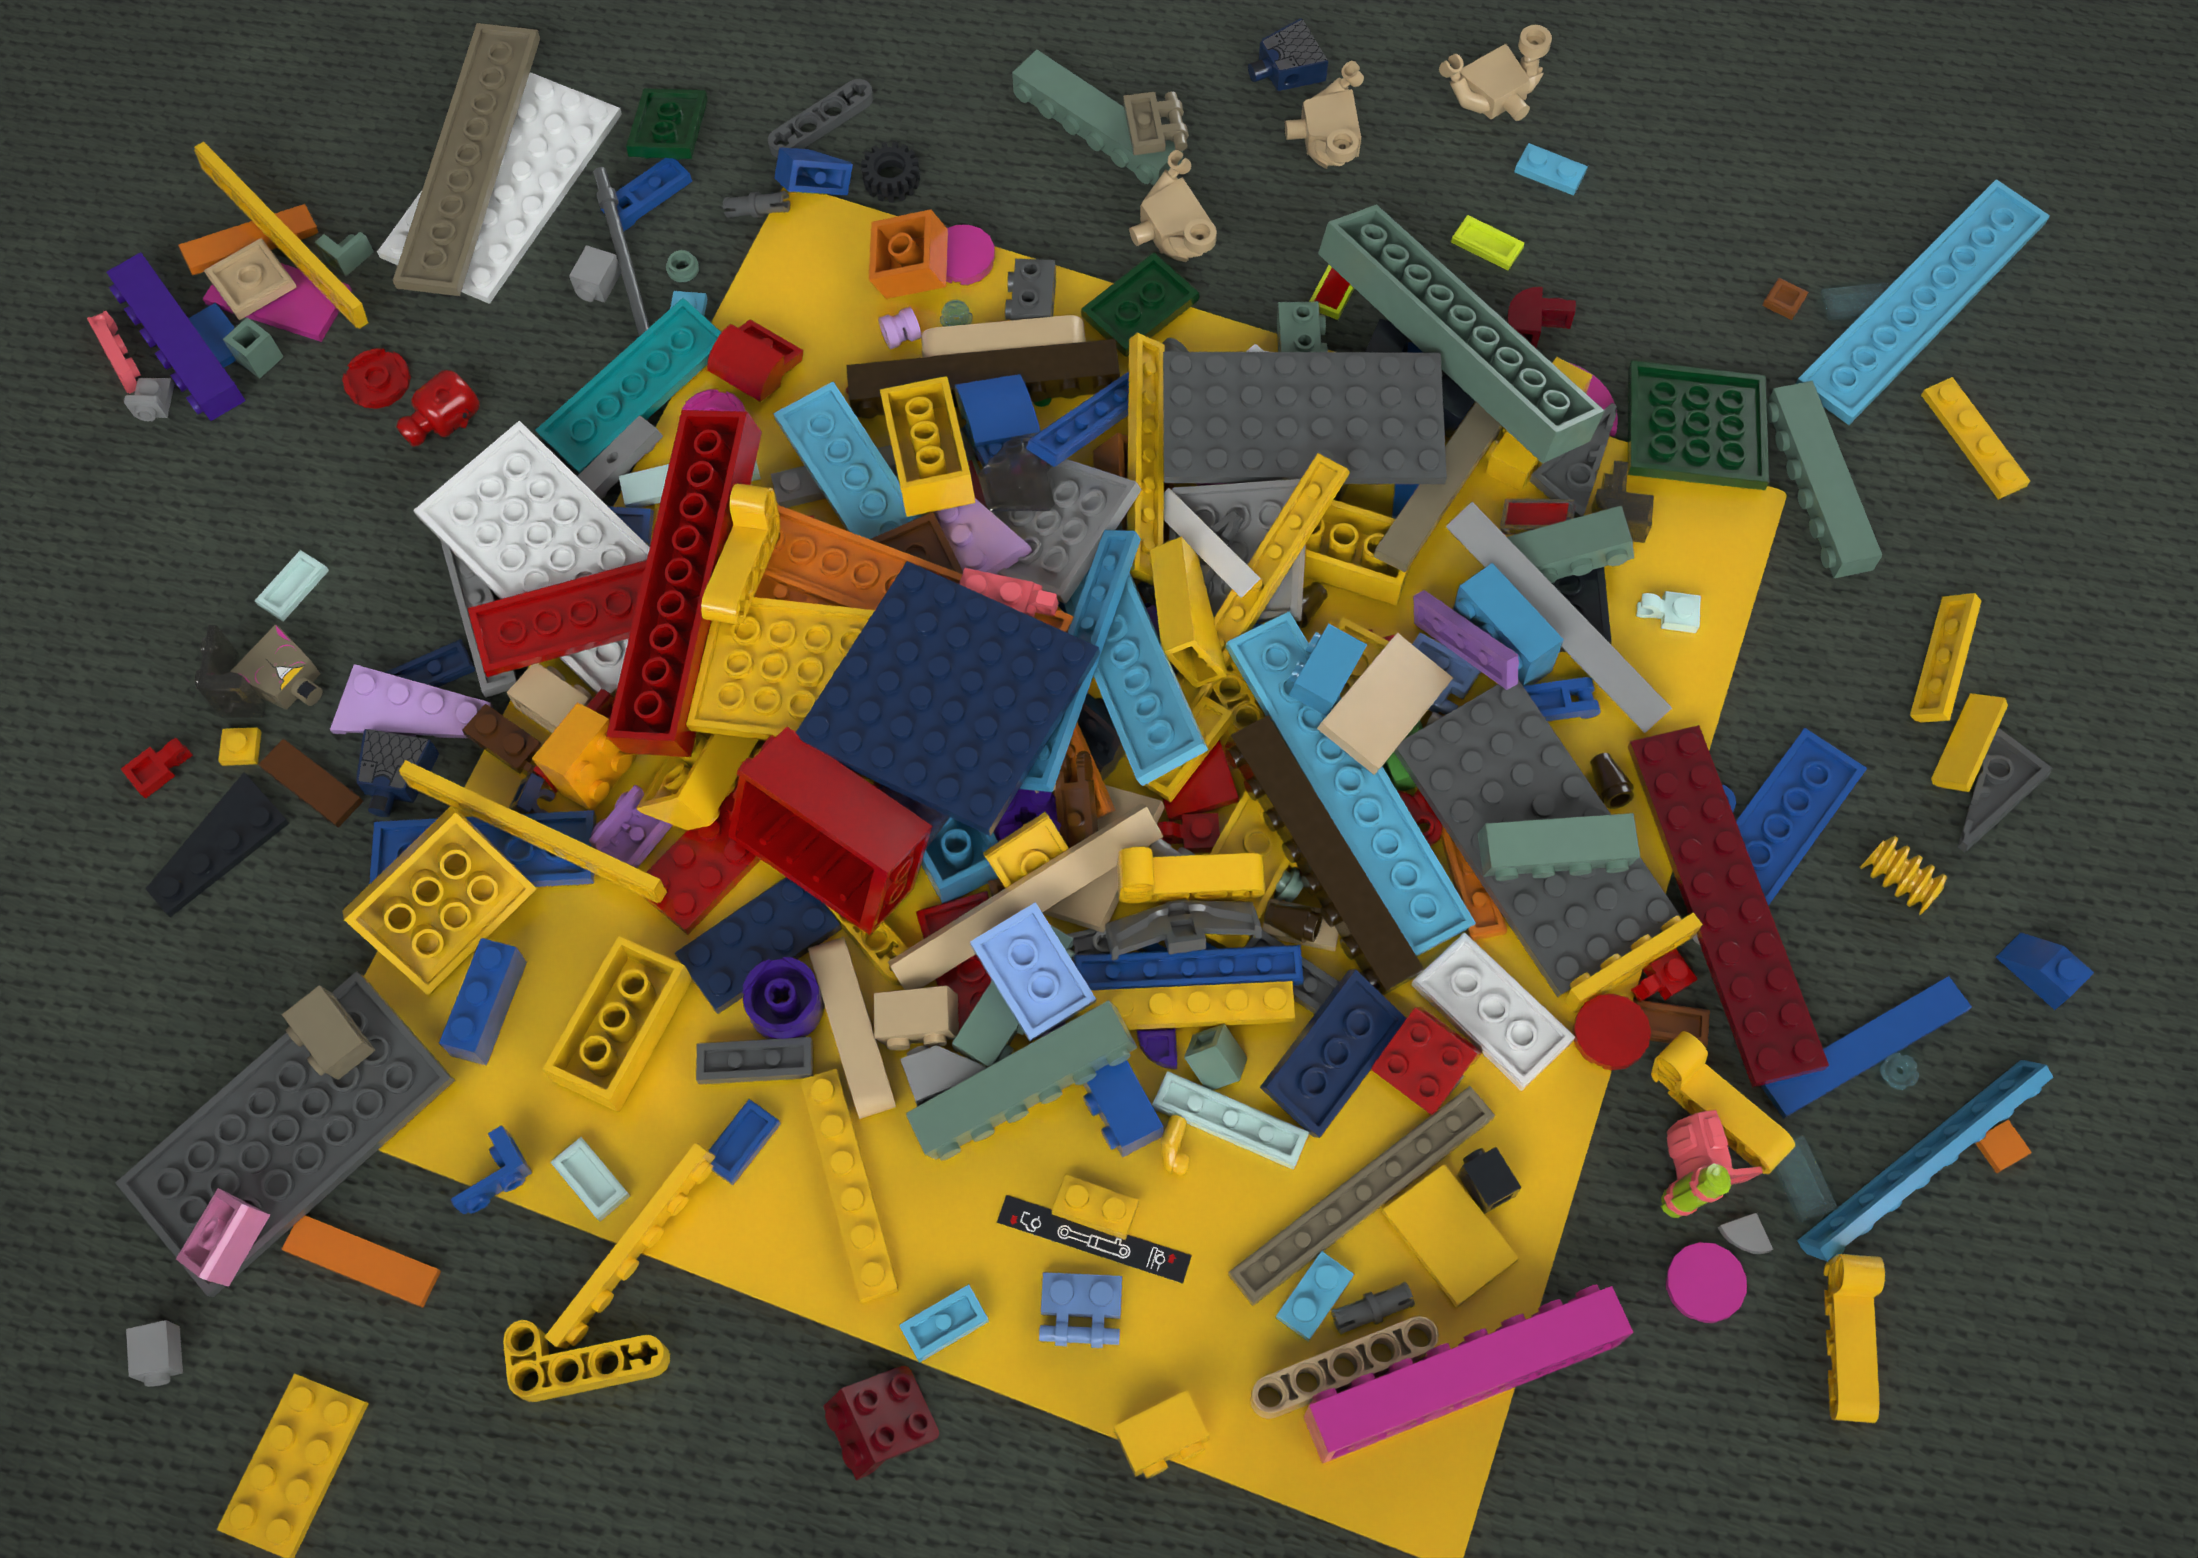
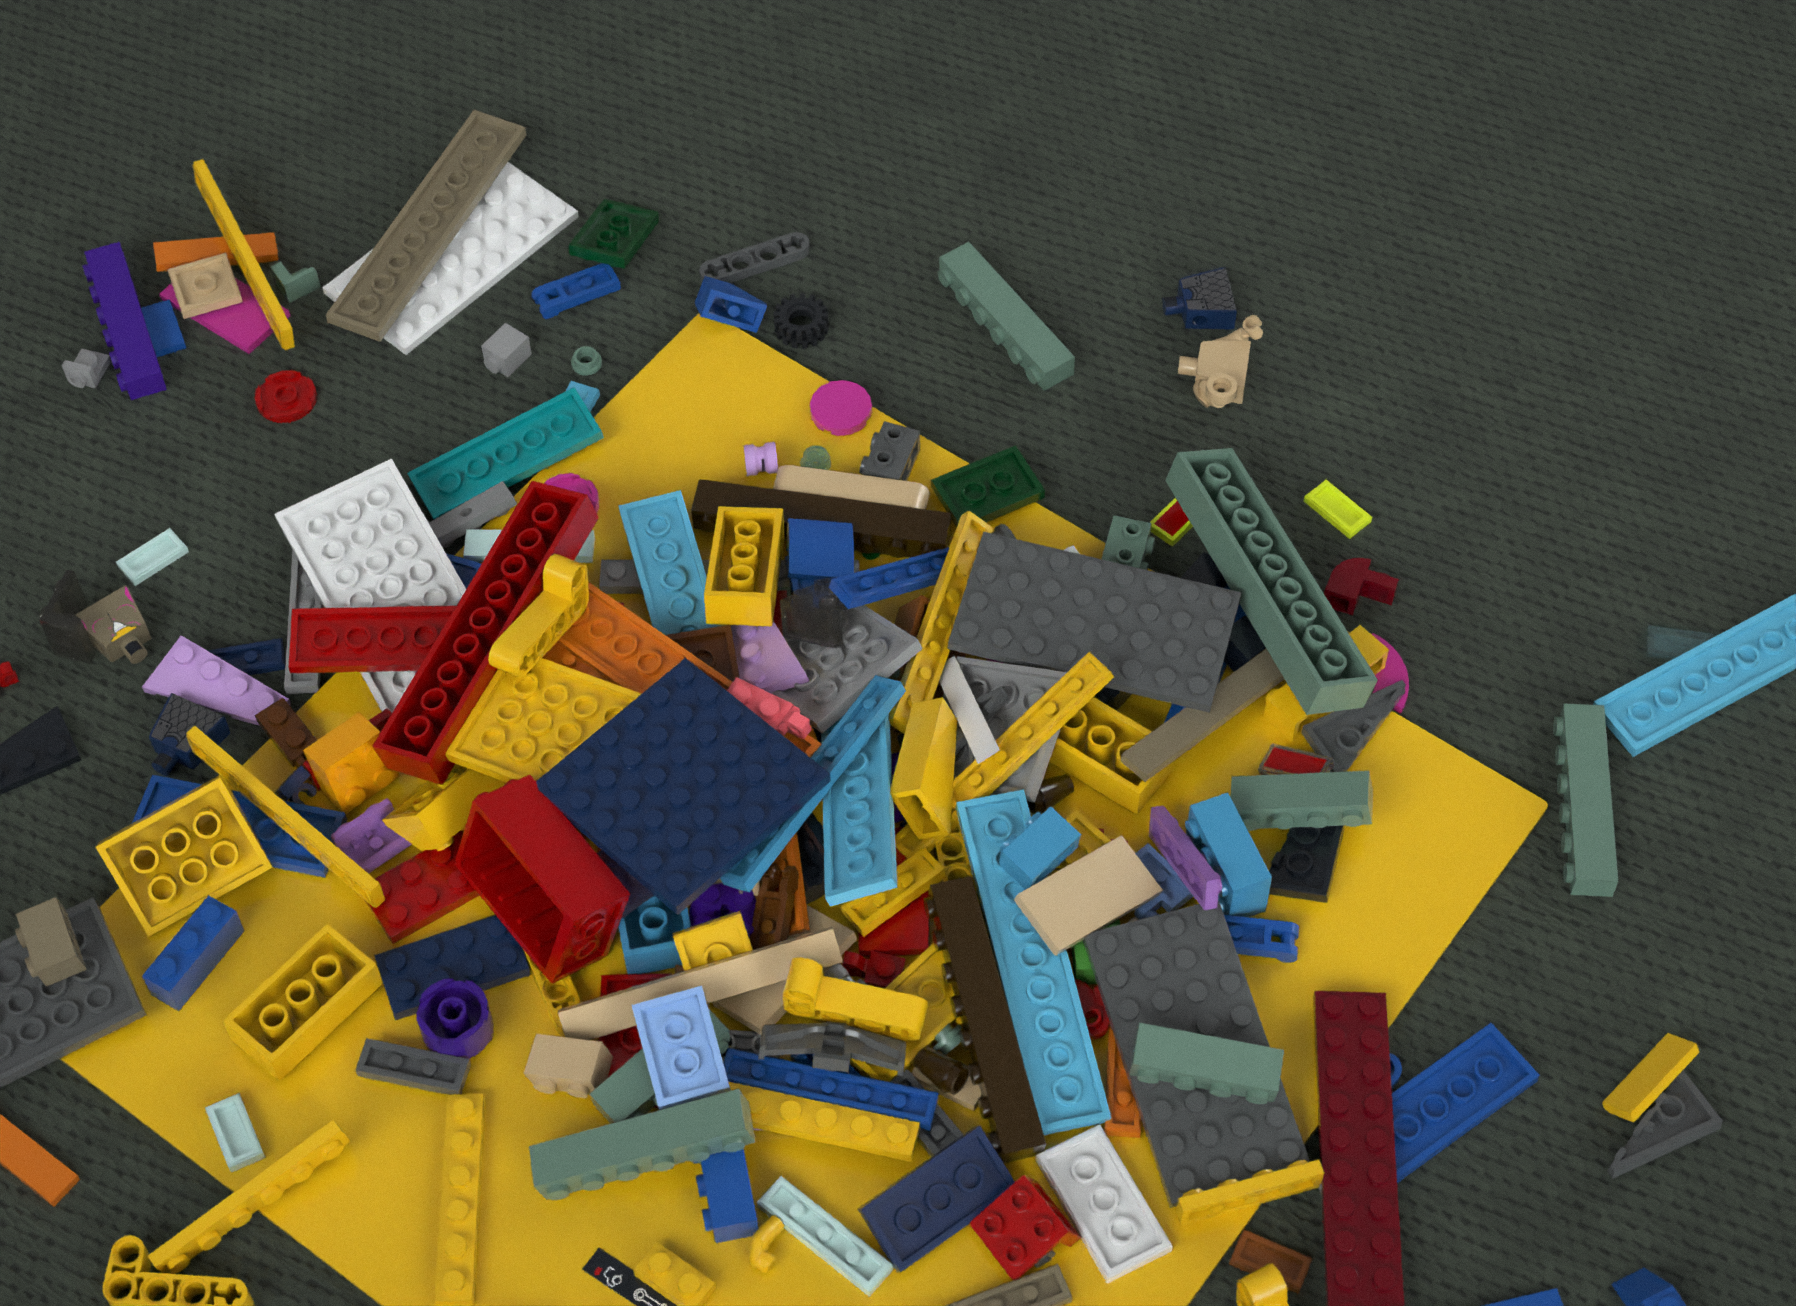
camera: 15 degrees right, 10 degrees down
(114, 347) = (69, 314): coral hinge -> none
(239, 746) = (61, 683): yellow plate -> none
(253, 347) = (187, 345): sand green brick -> none
(310, 783) = (111, 730): reddish brown tile -> none
(439, 406) = (330, 432): red piece -> none
(509, 1177) = (161, 1110): blue bracket -> none
(546, 696) = (336, 700): tan piece -> none
(608, 201) = (538, 290): dark grey bar -> none
(742, 1141) = (379, 1136): blue tile -> none
(752, 359) = (619, 455): red brick -> none
(756, 204) = (670, 322): dark grey pin -> none
(852, 1028) = (507, 1061): tan beam -> none
(908, 254) = (788, 395): orange brick -> none
(935, 1071) = (567, 1115): light grey slope -> none
(1145, 125) = (1043, 330): dark tan plate -> none
(1159, 1046) = (782, 1153): dark purple tile -> none
(1174, 216) = (1047, 417): tan torso -> none
(1216, 1057) = (829, 1175): sand green panel -> none
(1497, 79) = (1394, 363): tan torso -> none
(1551, 169) = (1421, 456): medium azure plate -> none
(1580, 638) = (1282, 862): light grey tile -> none
(1611, 782) = (1285, 1025): dark brown cone -> none
(1611, 1031) = (1209, 1251): red tile -> none
(1636, 507) = (1387, 780): clear smoke brick -> none
(1665, 975) = (1280, 1214): red plate -> none
(1675, 610) = (1401, 885): light aqua plate -> none
(1697, 425) = (1480, 721): dark green plate -> none
(1785, 298) = (1609, 626): dark orange tile -> none
(1905, 873) = (1542, 1182): yellow piece -> none
(1945, 658) = (1653, 993): yellow plate -> none
(1975, 438) = (1754, 798): yellow plate -> none

